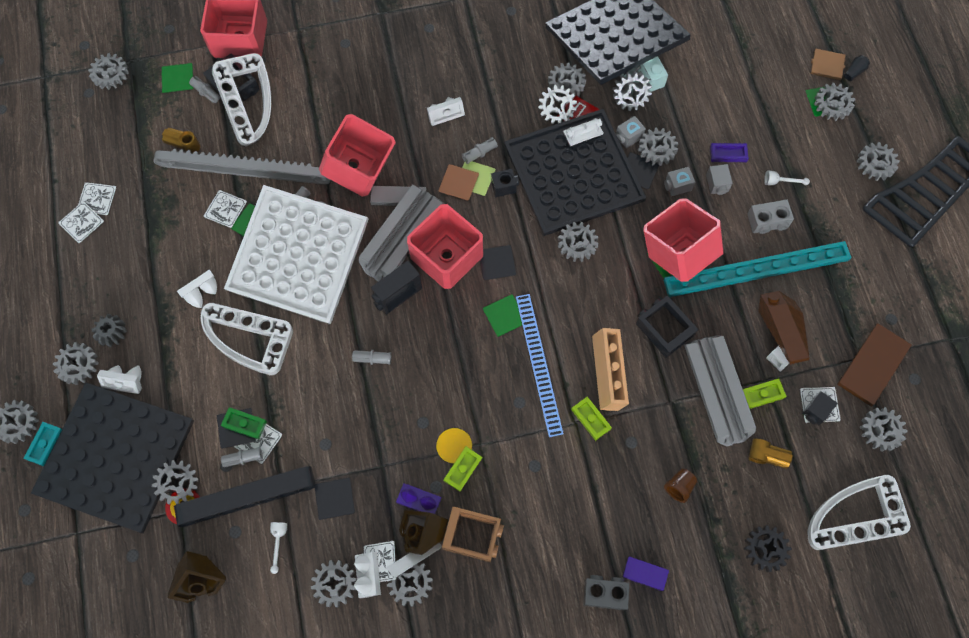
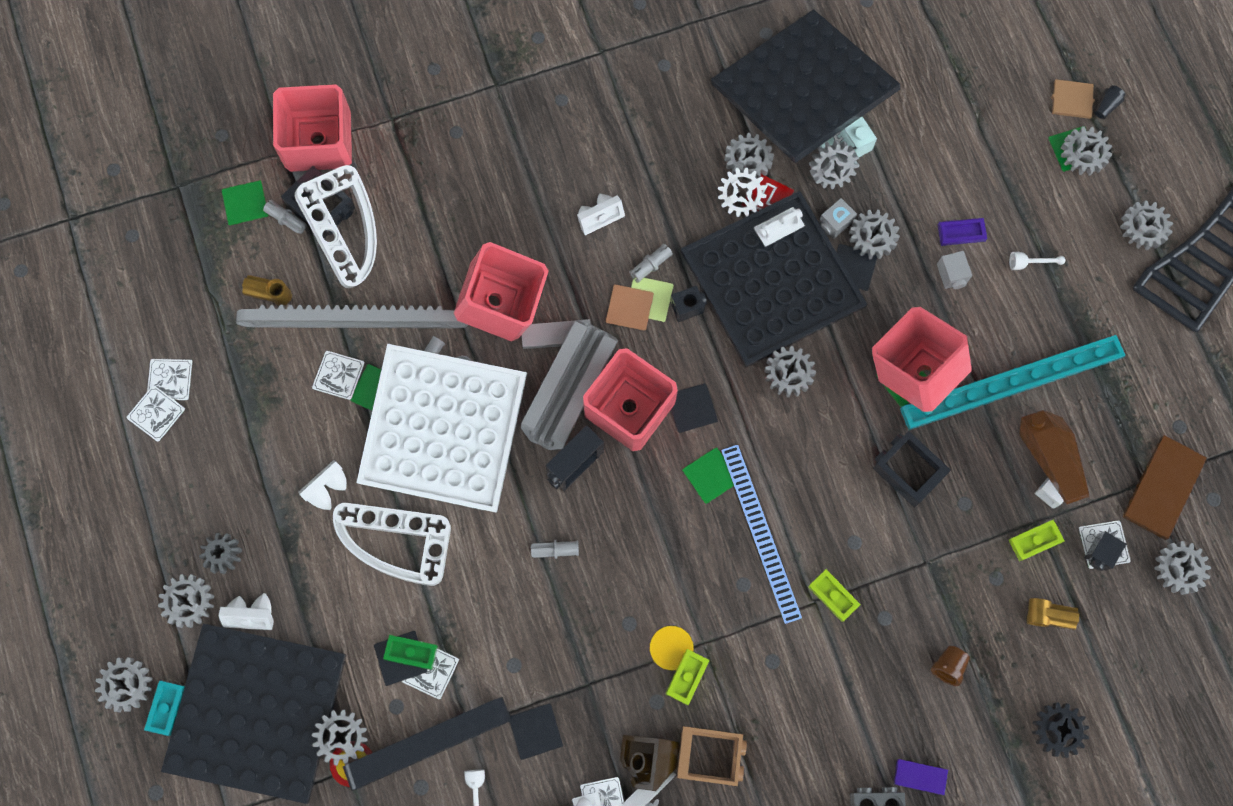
camera: 10 degrees left, 5 degrees up
(108, 71) = (151, 203): light grey gear -> none
(242, 457) = (414, 695): light grey axle -> none
(418, 499) = (639, 721): dark purple tile -> none
(610, 369) = (850, 532): light nougat brick -> none
(679, 181) = (906, 278): light grey brick -> none
(720, 390) = (984, 540): light grey piece -> none
(769, 213) = (1020, 309): light grey brick -> none
(891, 516) = (1202, 673): white beam -> none

